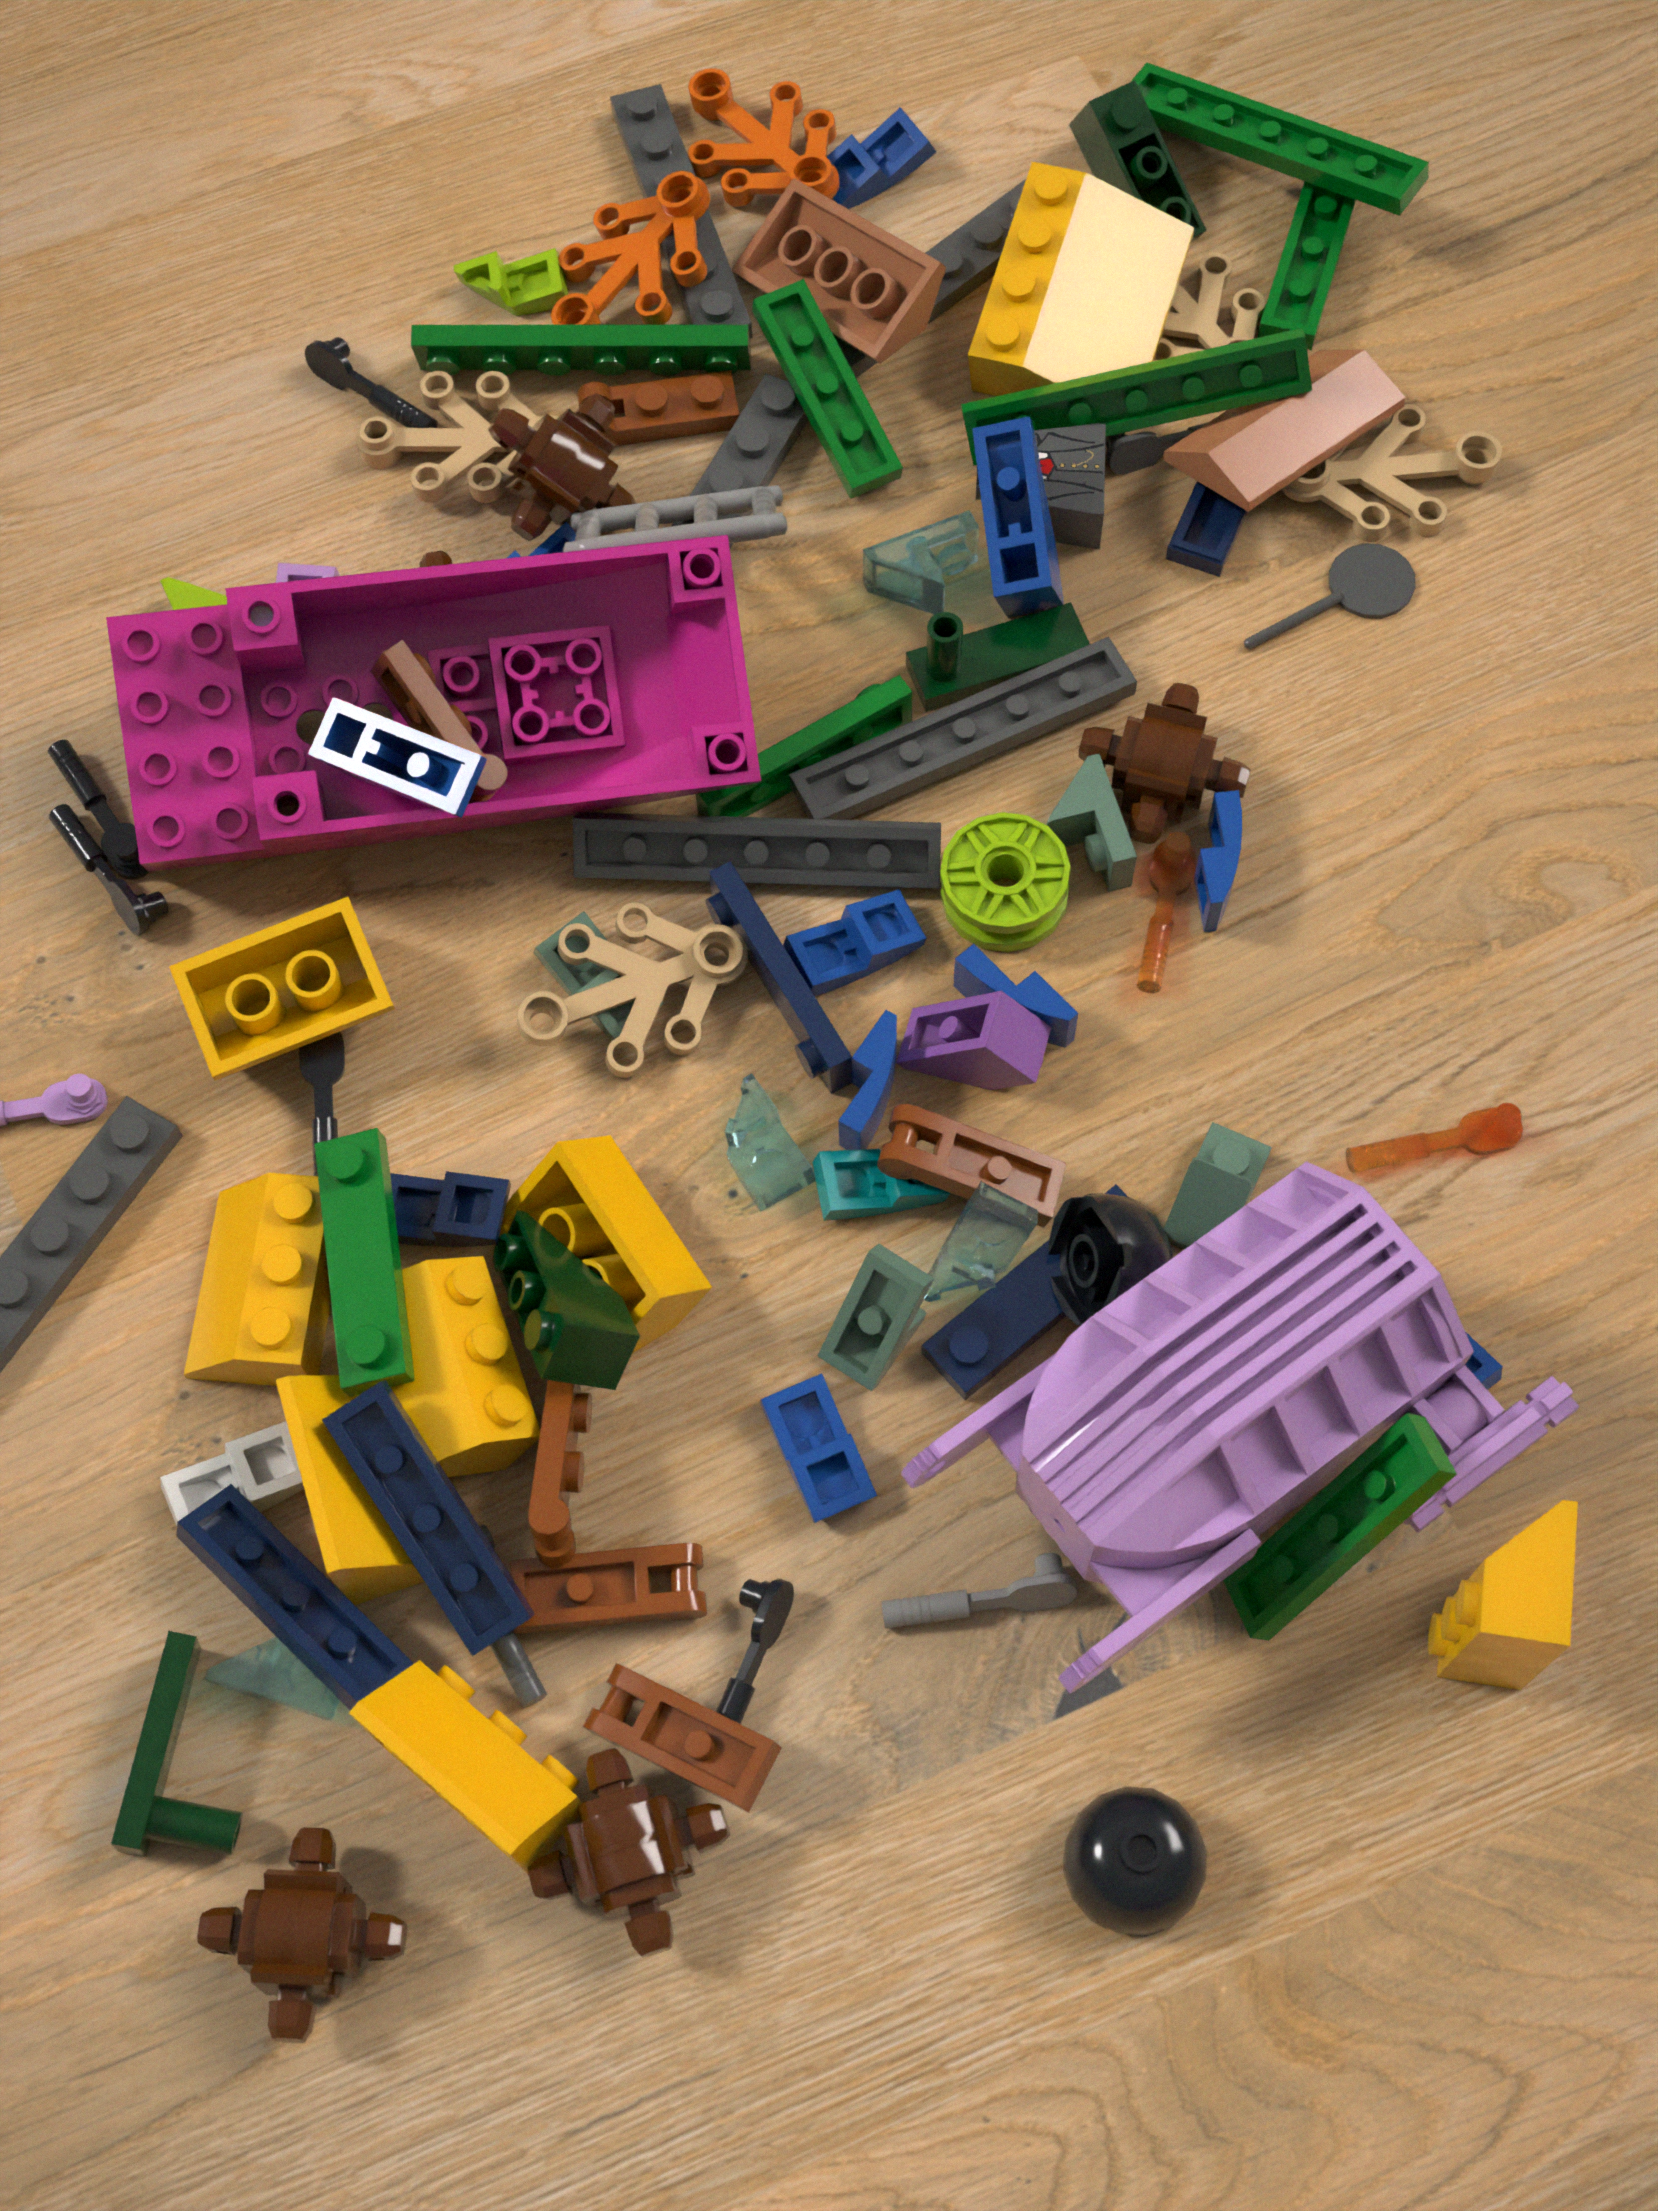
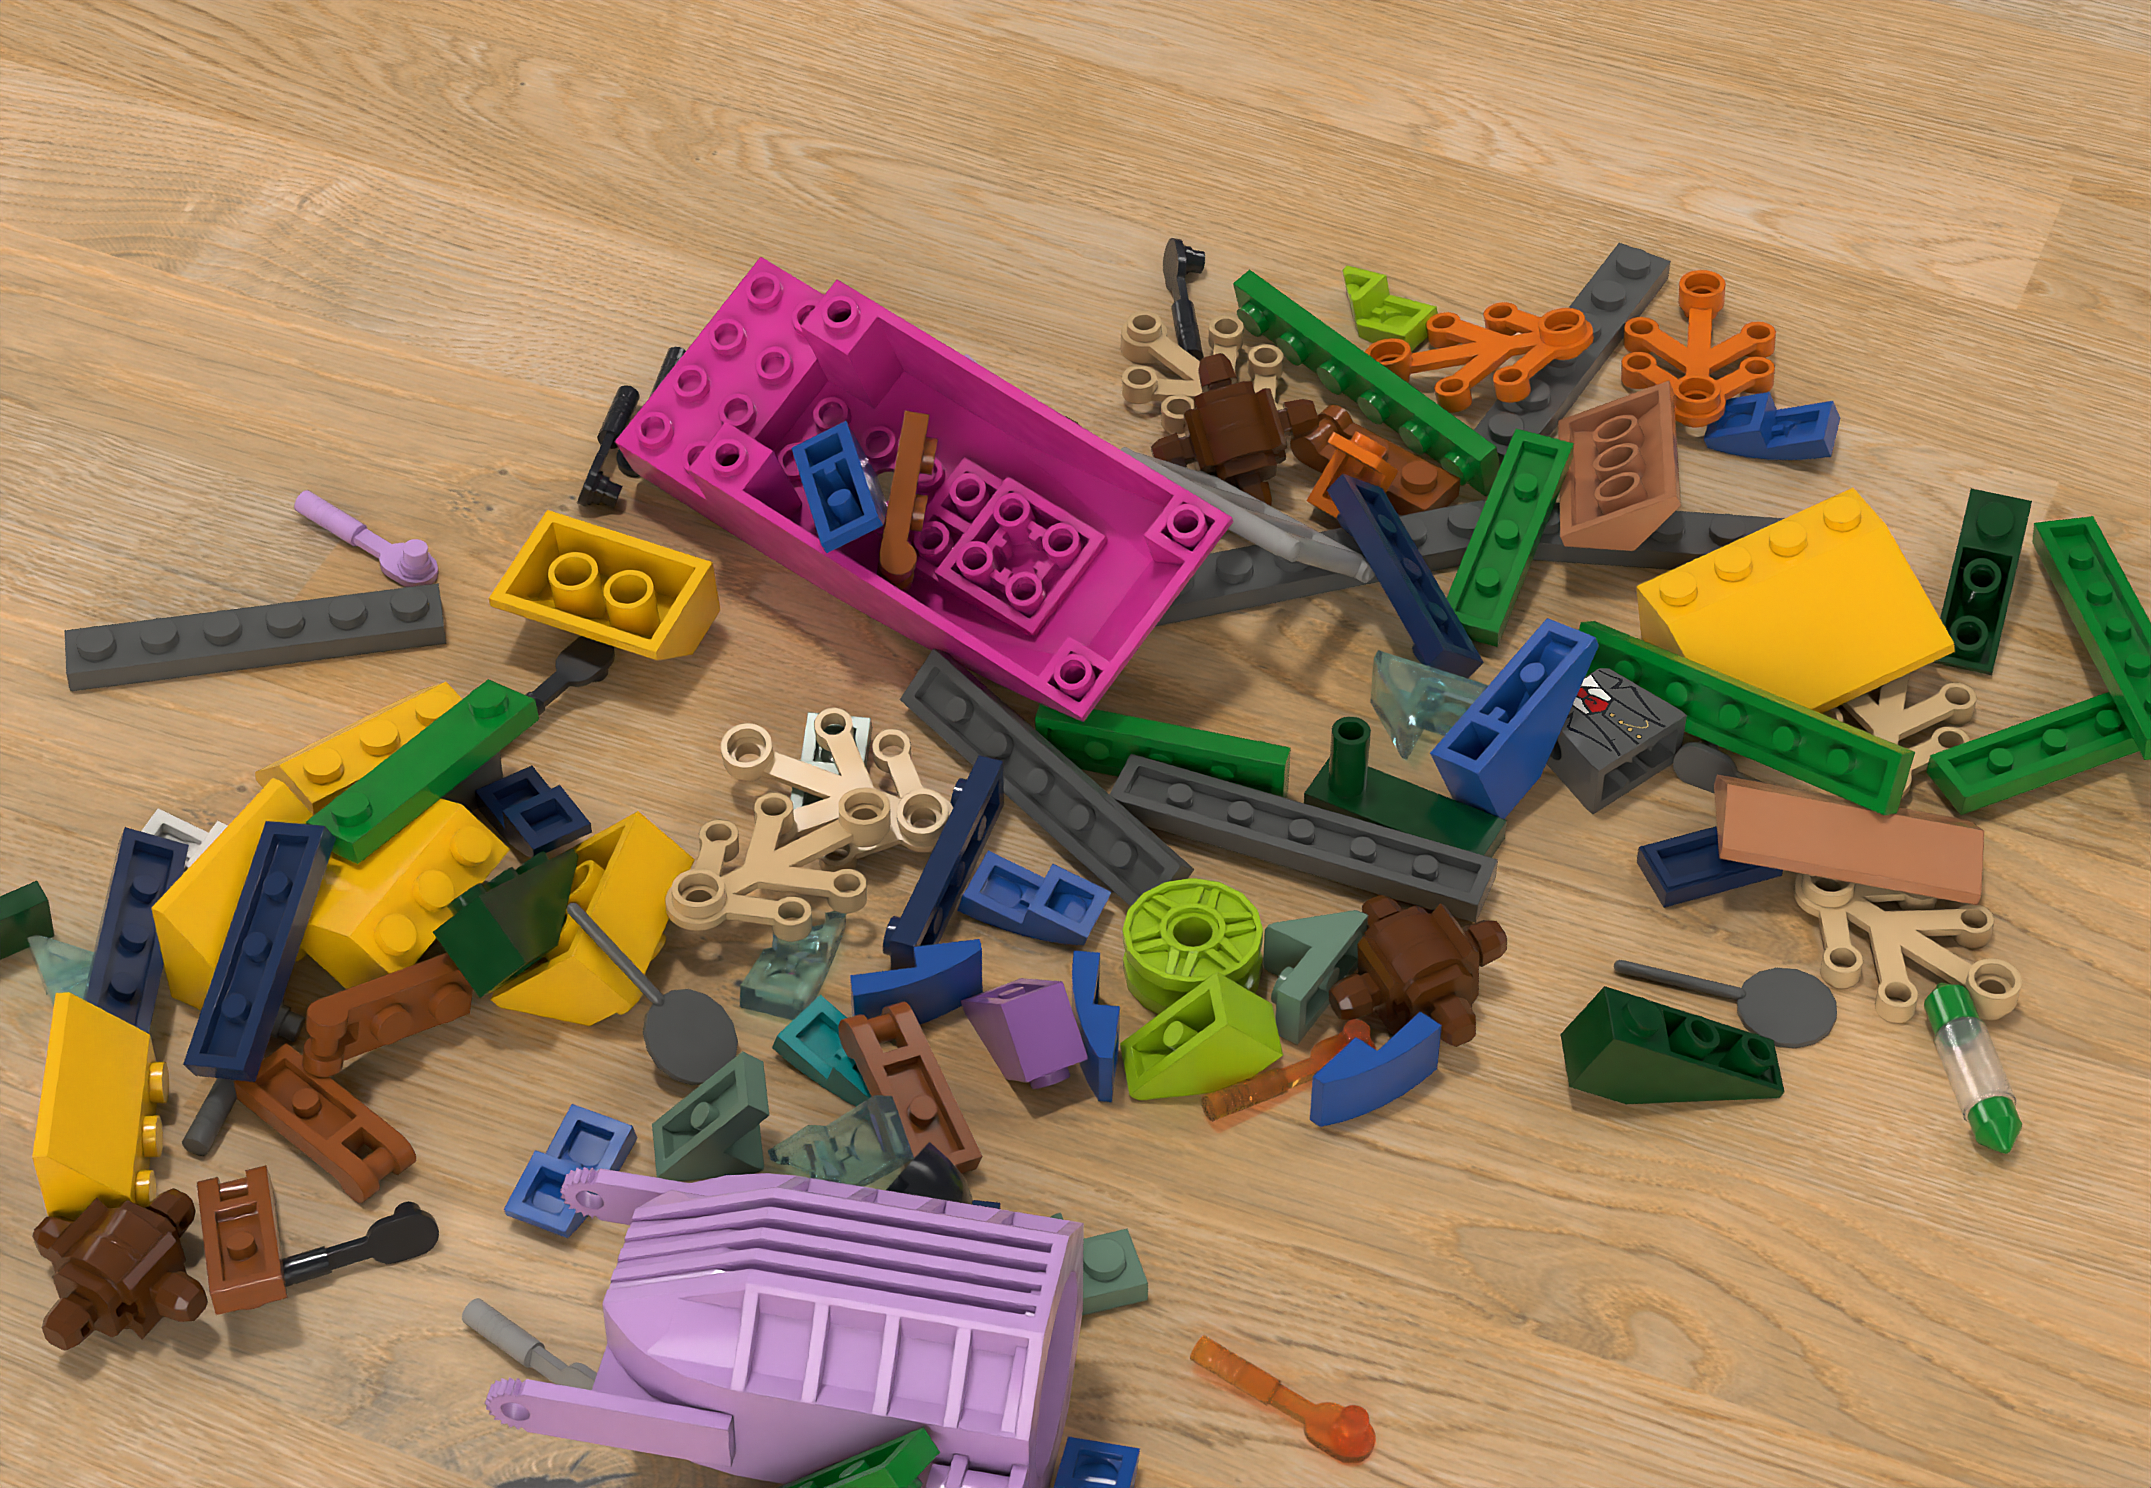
camera: 45 degrees right, 20 degrees down
(674, 433) = (1356, 458): none -> orange bracket
(677, 1091) = (705, 899): none -> tan plant
(734, 452) = (1404, 576): none -> dark blue plate
(762, 1263) = (682, 1029): none -> dark grey piece
(1099, 943) = (1202, 1042): none -> lime slope
(1364, 683) = (1664, 1055): none -> dark green slope
(1528, 523) = (1973, 1067): none -> piece

